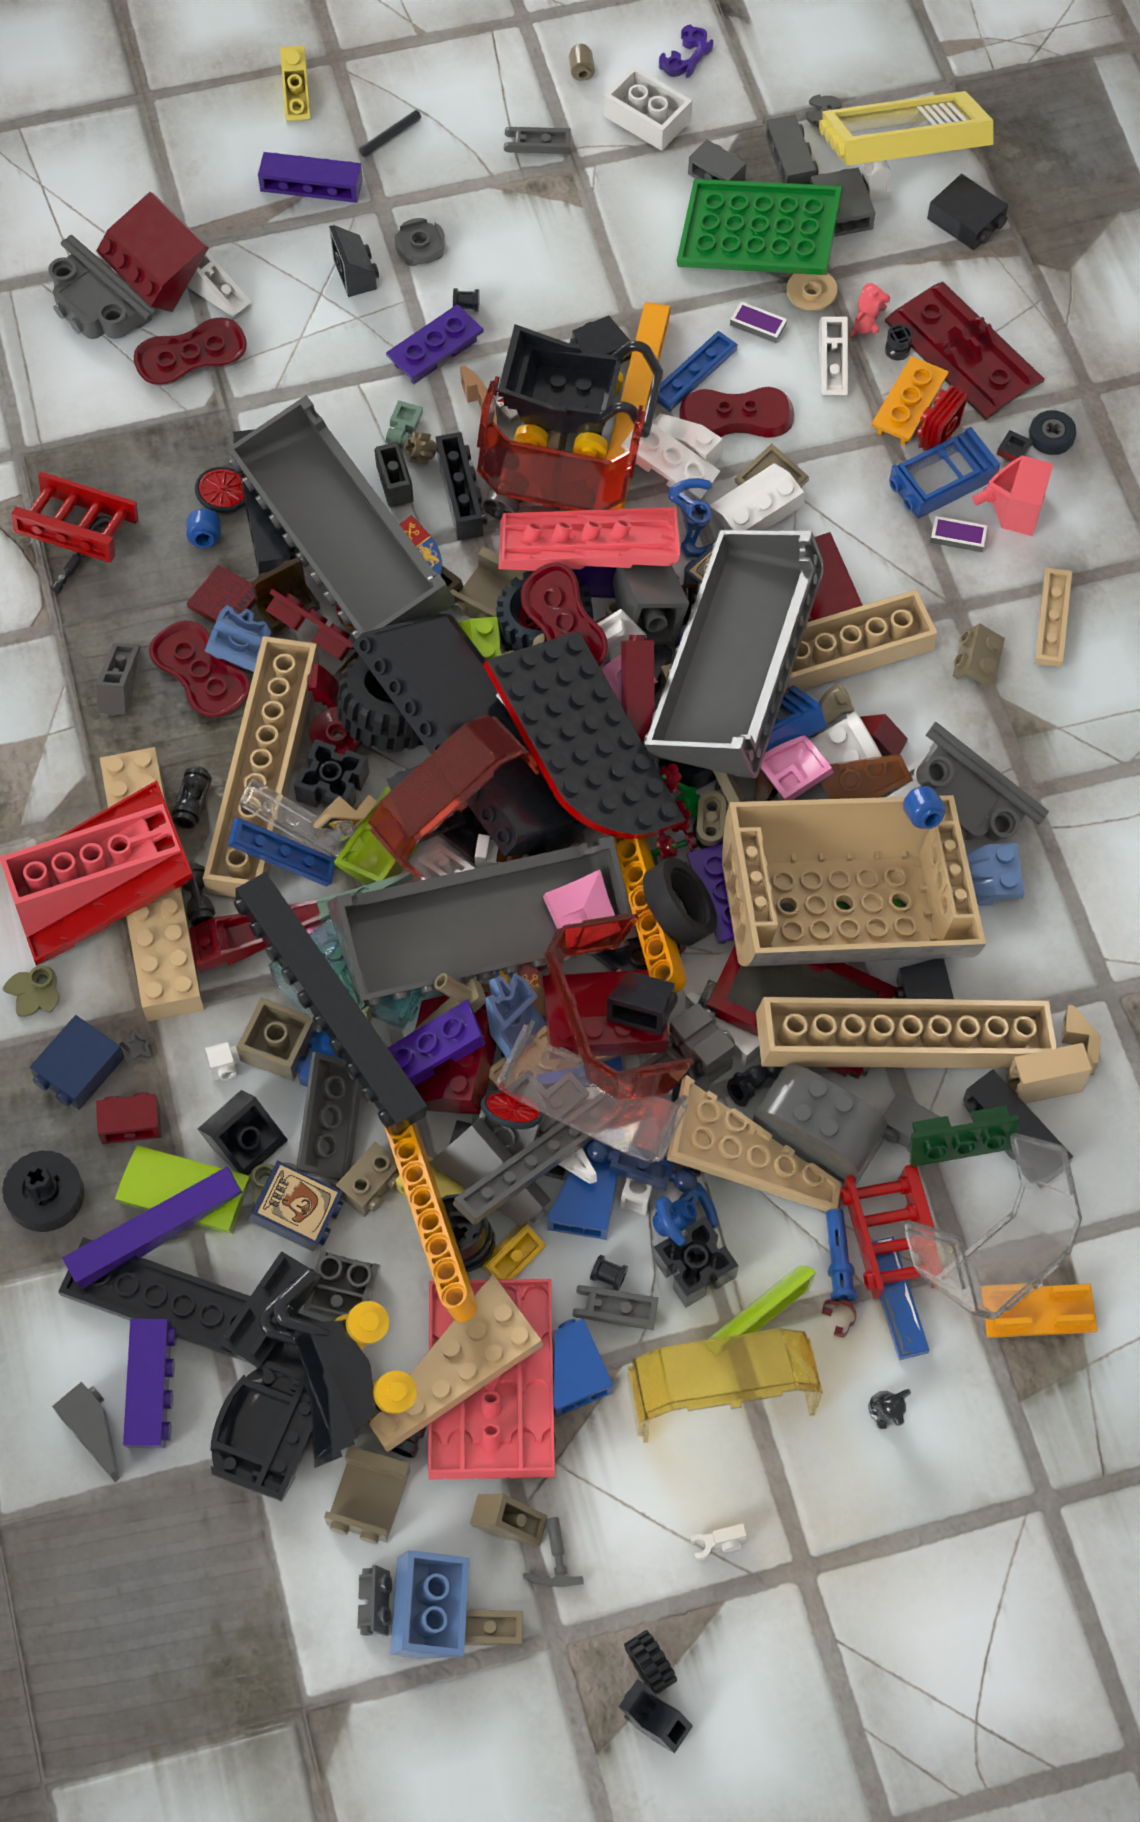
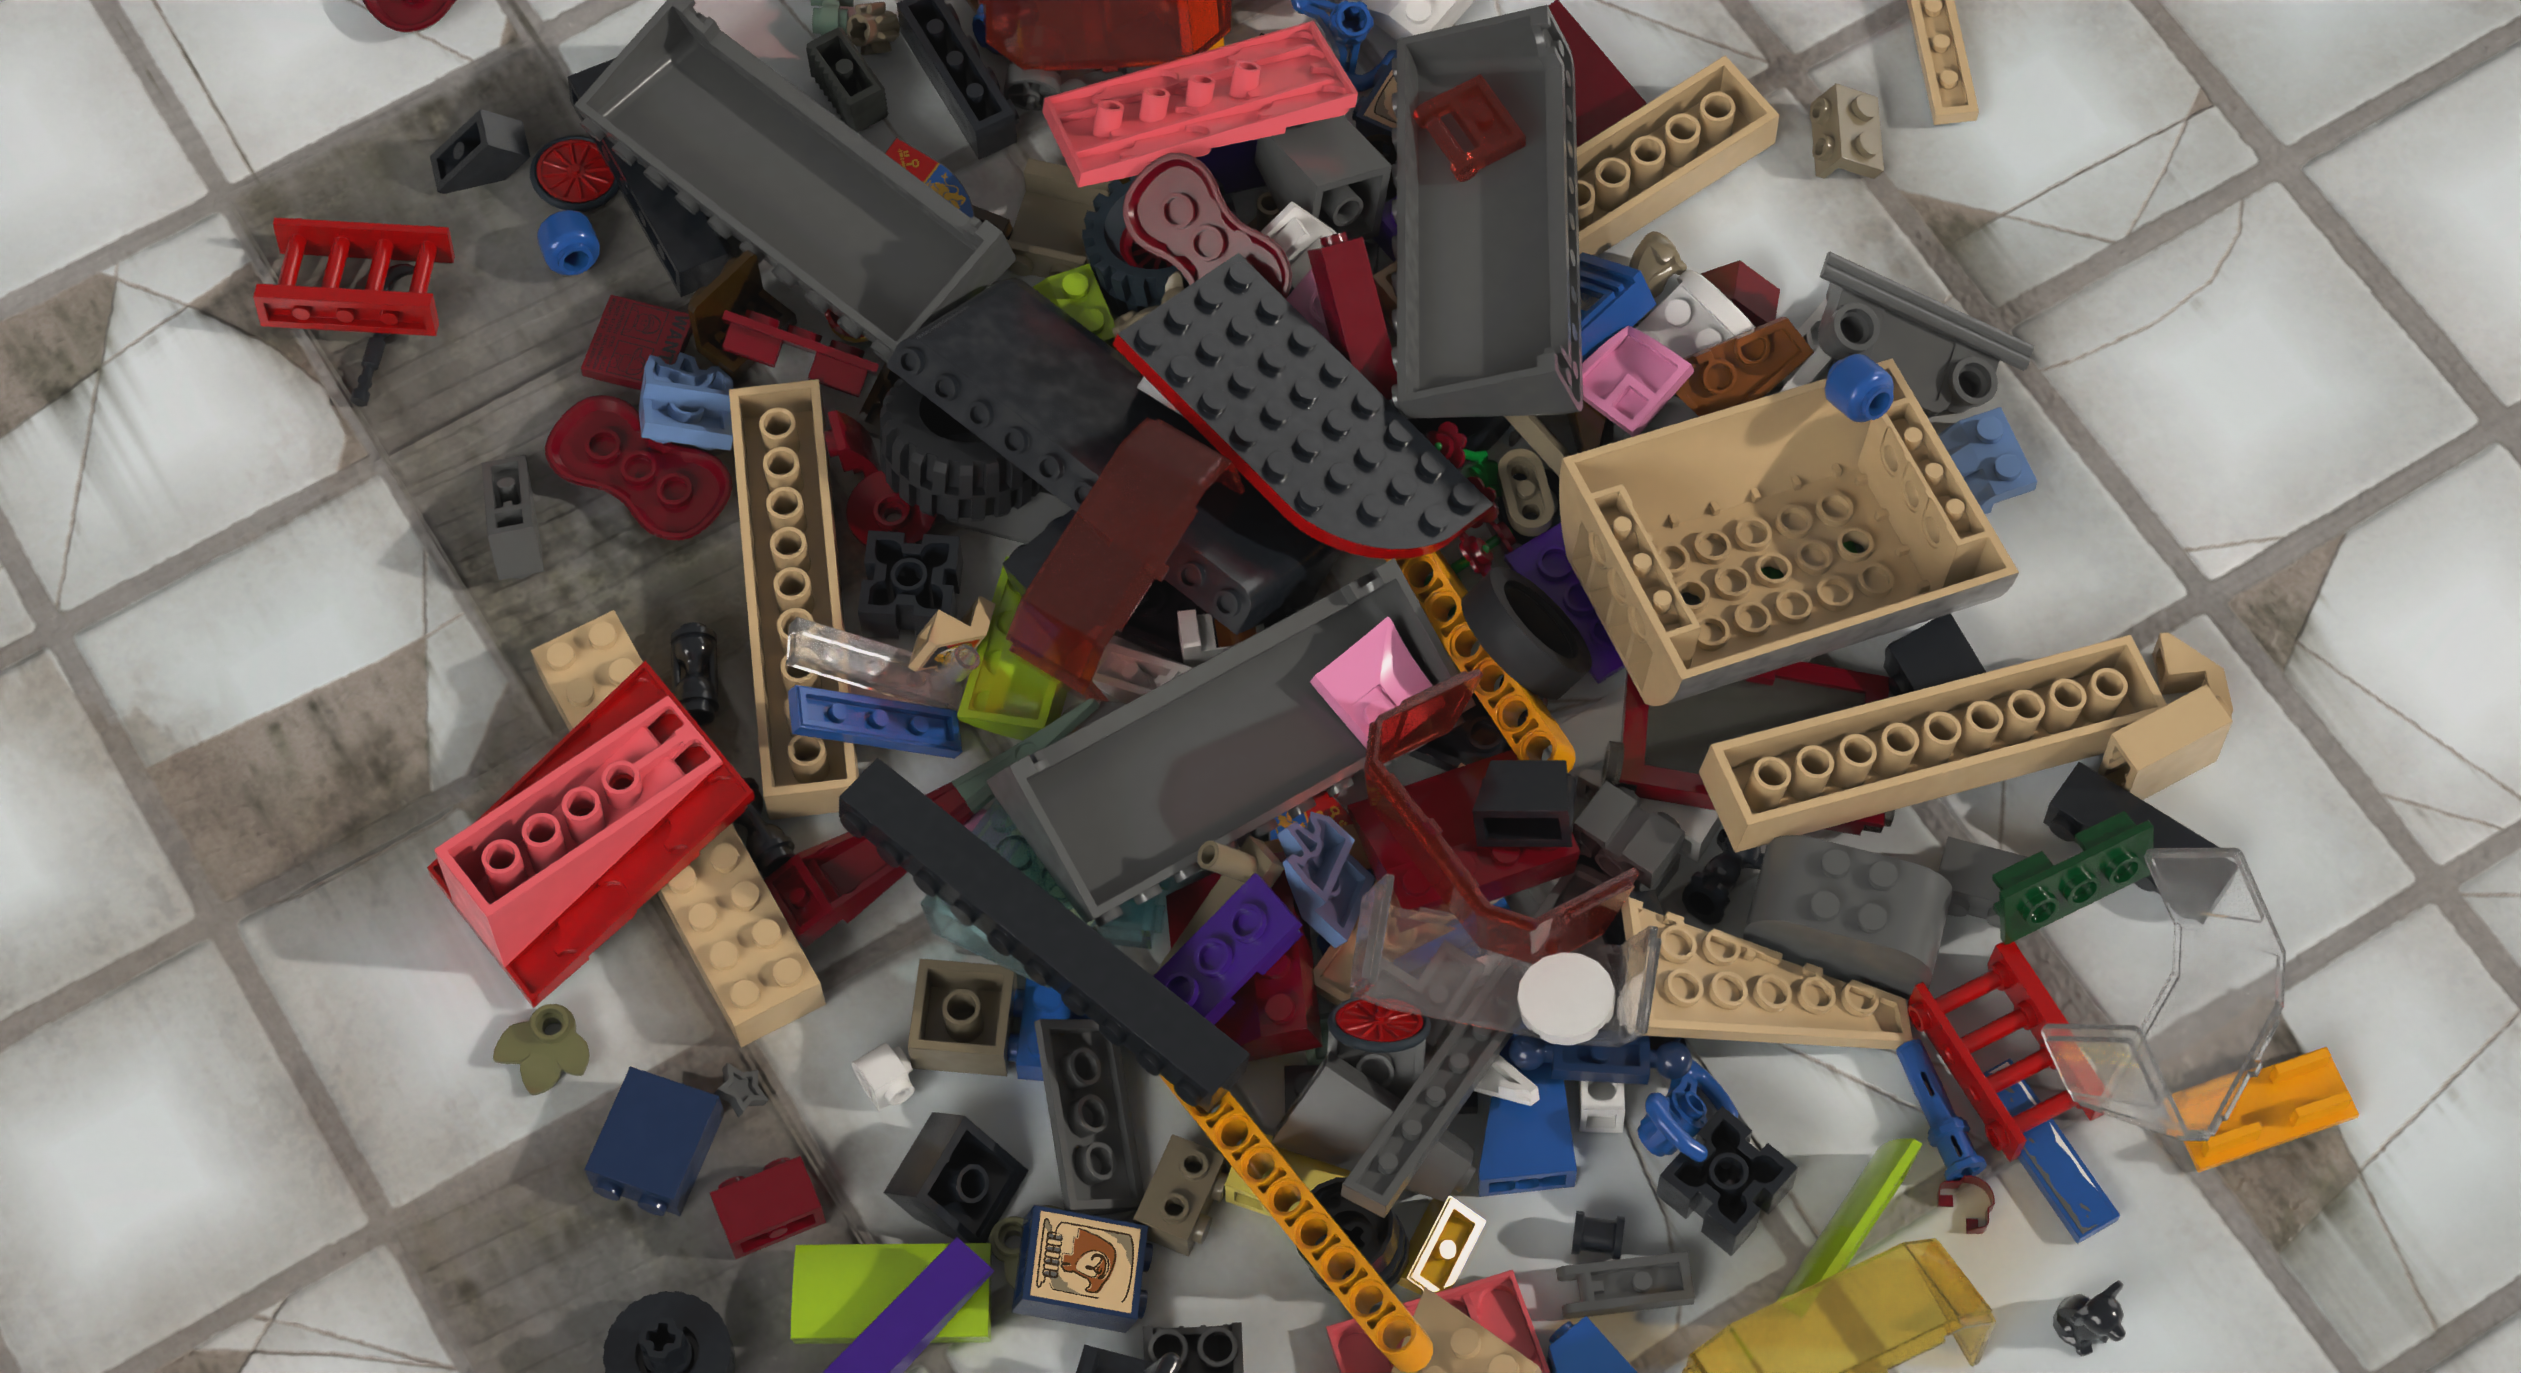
camera: 15 degrees left, 0 degrees up
(171, 463) = (480, 153): none -> black slope
(629, 1125) = (1566, 998): none -> white tile
(755, 591) = (1482, 121): none -> clear red plate

